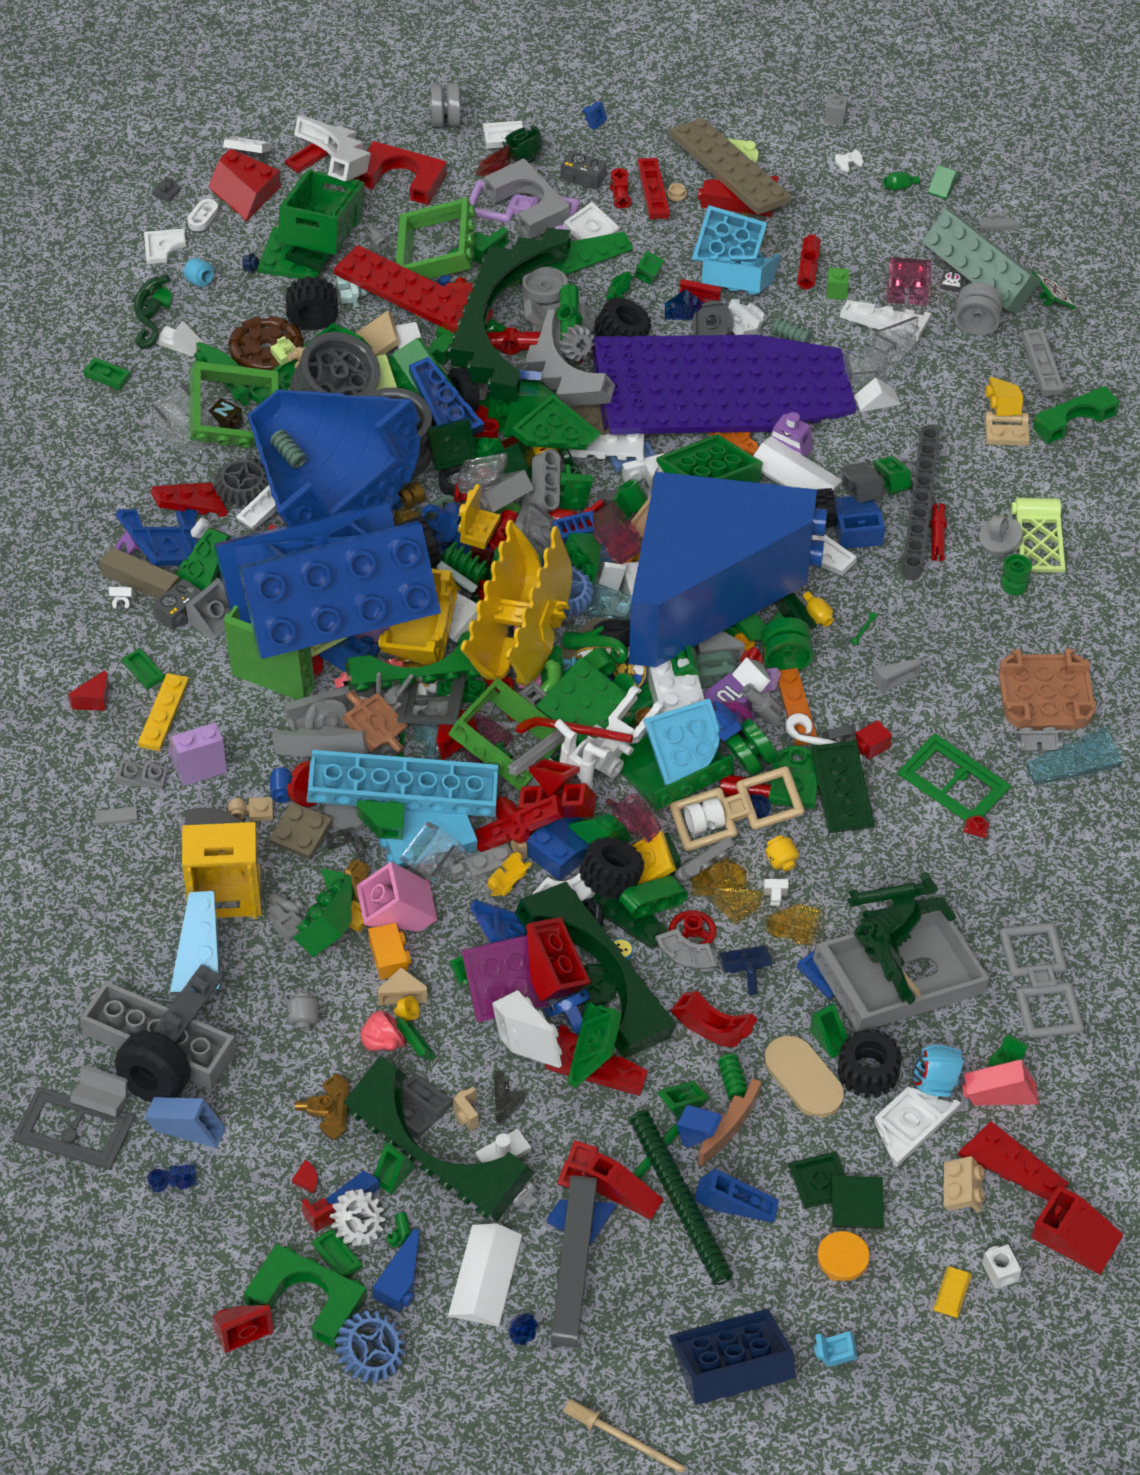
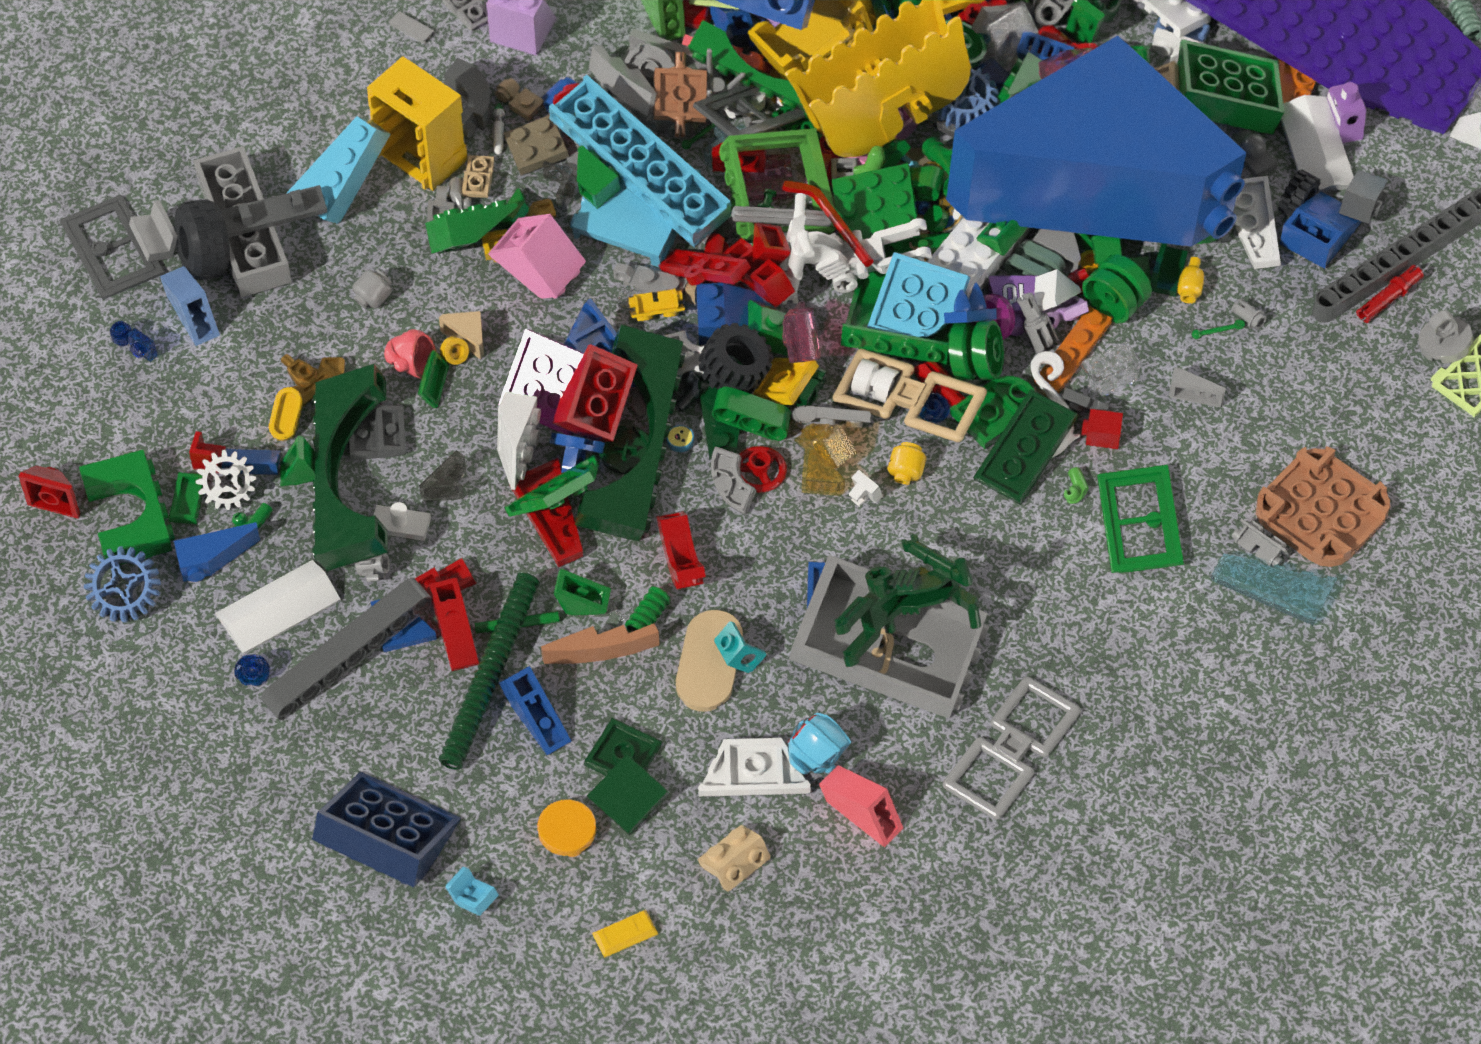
camera: 45 degrees right, 5 degrees up
(266, 845) = (498, 139): none -> white piece
(285, 882) = (478, 176): none -> tan slope
(306, 1177) = (232, 420): red tile -> none
(342, 1142) = (286, 414): none -> yellow tile
(388, 949) = (492, 292): light orange brick -> none
(432, 853) = (600, 239): clear slope -> none
(463, 1110) = (407, 458): tan bracket -> none
(592, 1419) = (224, 784): tan piece -> none
(697, 1125) = (561, 620): blue slope -> none
(748, 960) = (770, 525): dark blue plate -> none
(795, 923) = (850, 530): clear yellow slope -> none
(816, 1052) = (734, 648): none -> teal bracket
(828, 1029) = (772, 638): green slope -> none
(837, 697) = (1111, 369): none -> clear bracket
(866, 1079) = (767, 711): black tyre -> none
(873, 604) = (1253, 317): none -> light grey pin
(894, 473) = (1407, 211): green plate -> none
(897, 789) = (1078, 489): none -> bright green arm
(976, 826) = (1110, 573): red plate -> none
(1001, 1275) = (684, 957): white brick -> none
(1010, 1051) = (901, 785): green bracket -> none
(1012, 1161) = (799, 866): red wing -> none
(1016, 574) = (1413, 382): green wheel -> none
(1076, 1230) = (781, 972): red slope -> none

